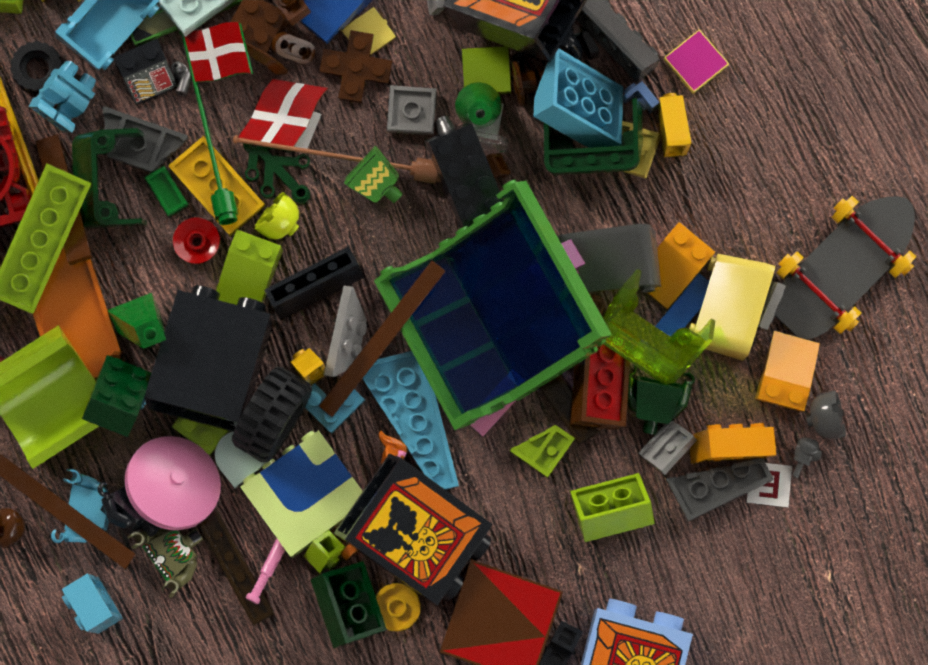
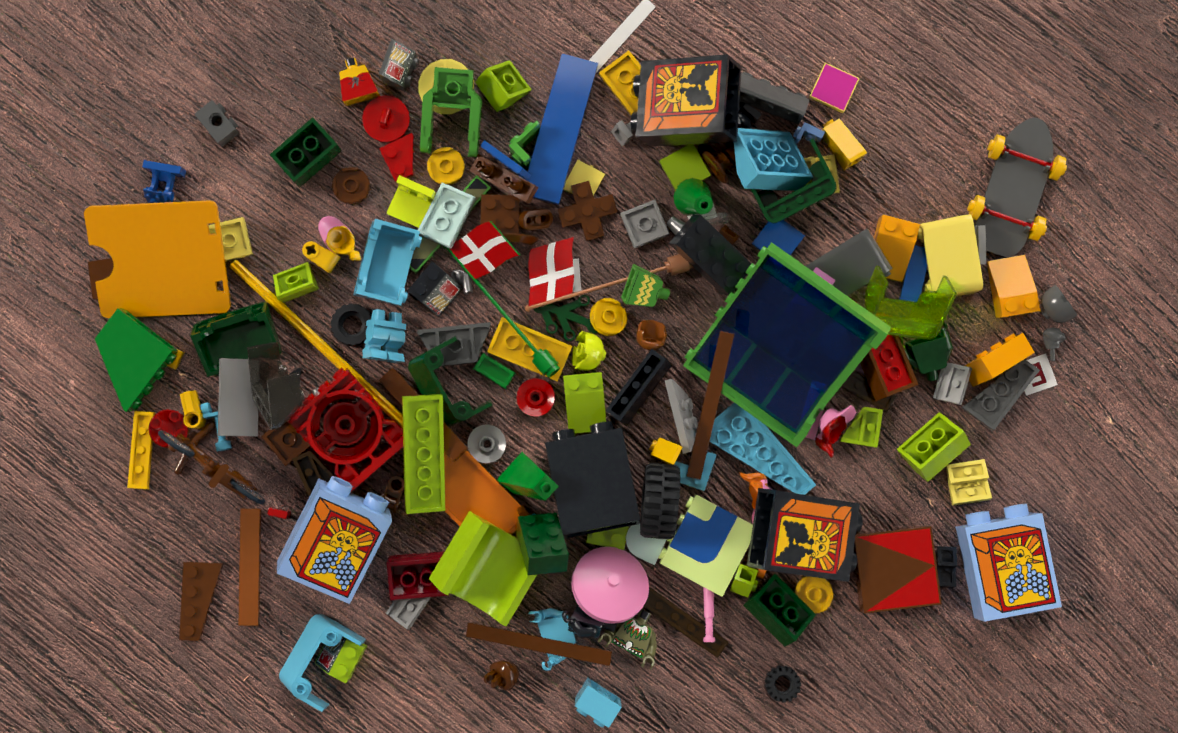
camera: 25 degrees left, 5 degrees up
(110, 256) = (477, 439): none -> light grey dish
(320, 191) = (608, 317): none -> yellow tile
(357, 232) = (651, 334): none -> dark orange hair
(508, 429) = (831, 426): none -> hair
(555, 196) = (781, 235): none -> blue tile
(632, 566) = (968, 482): none -> light yellow slope

